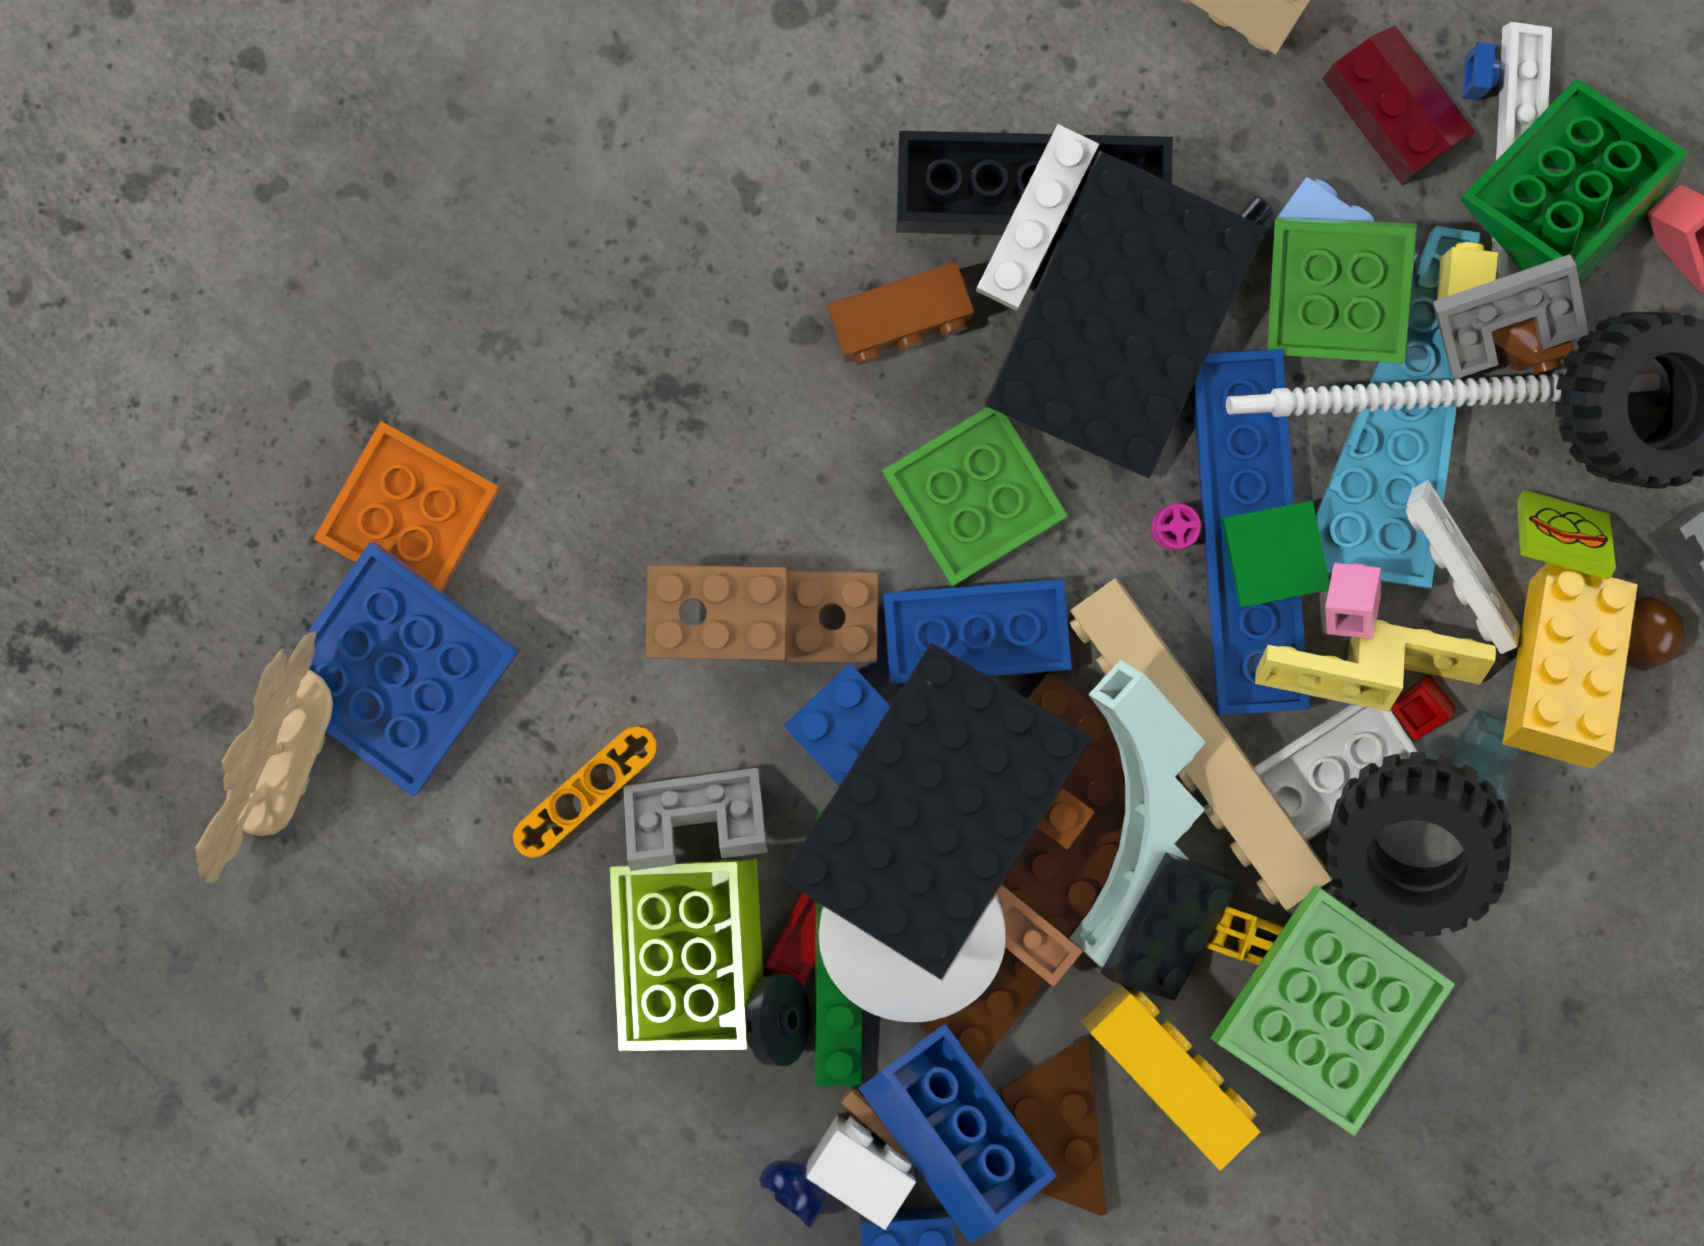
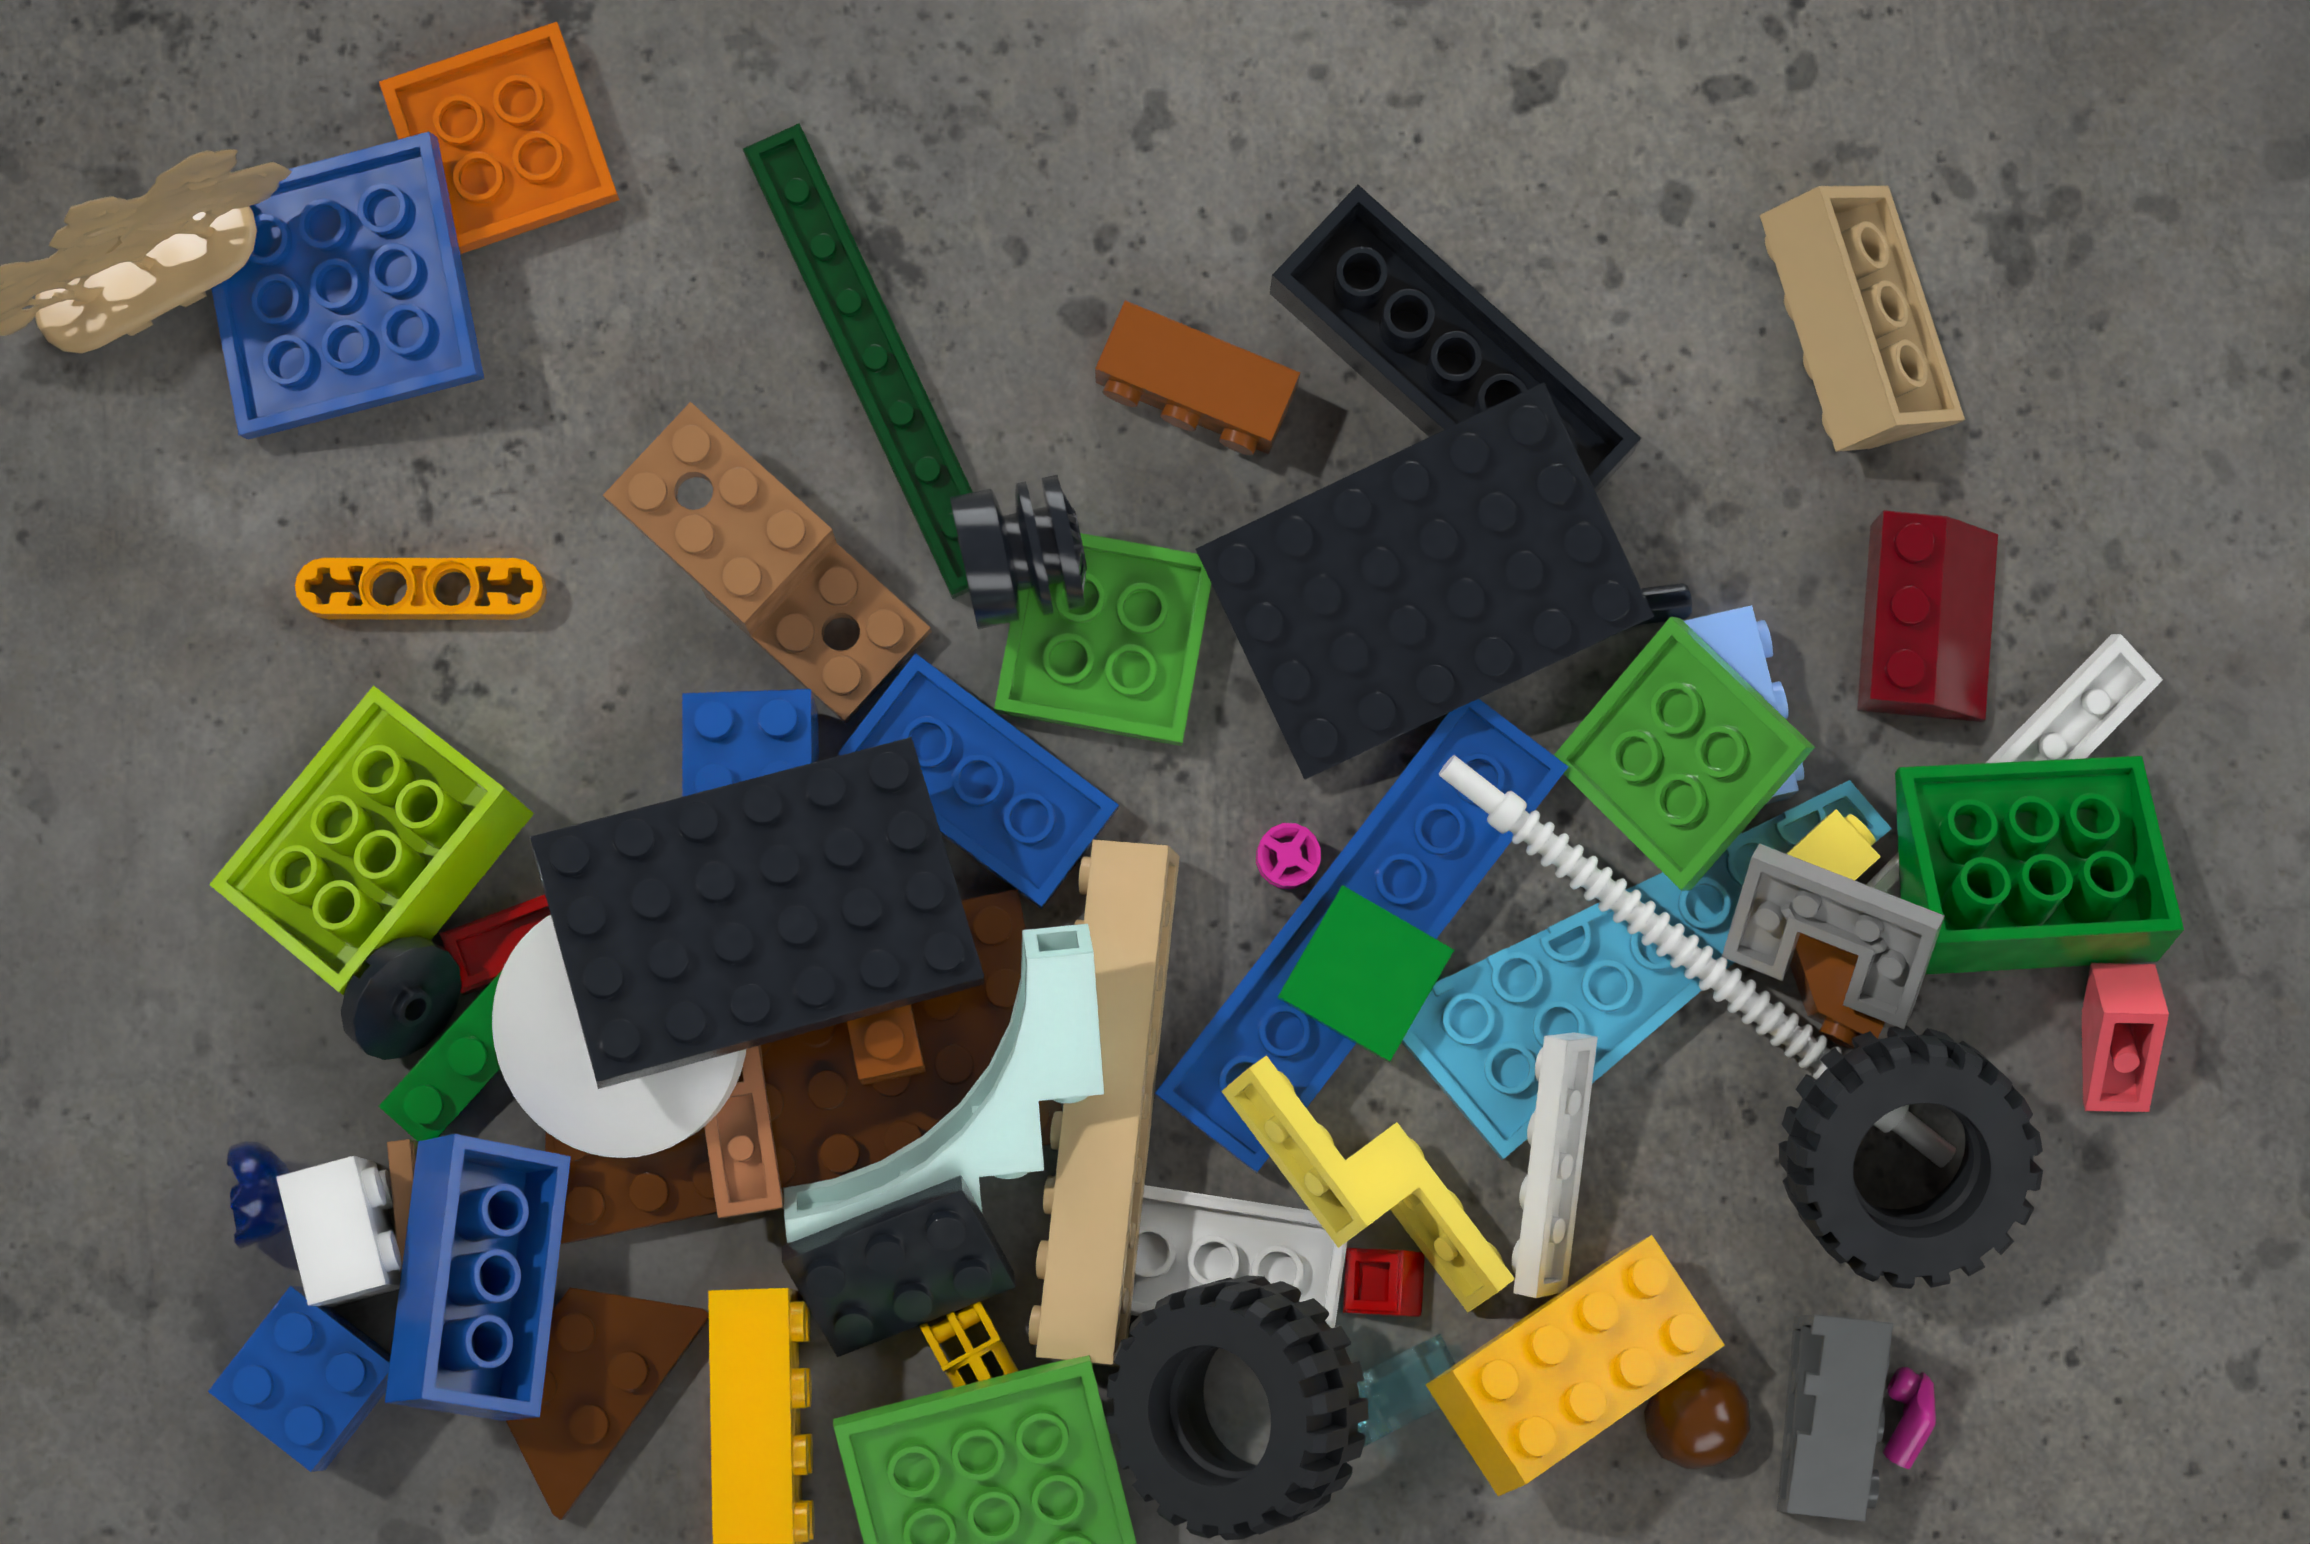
camera: 40 degrees right, 5 degrees down
(717, 453) = (865, 341): none -> dark green tile
(723, 797) = (557, 722): light grey plate -> none
(897, 491) = (1019, 551): none -> black wheel
(1037, 217) = (1420, 396): white plate -> none
(1353, 600) = (1402, 1092): bright pink brick -> none
(1480, 71) = (2045, 661): blue plate -> none
(1565, 534) = (1696, 1226): lime tile -> none

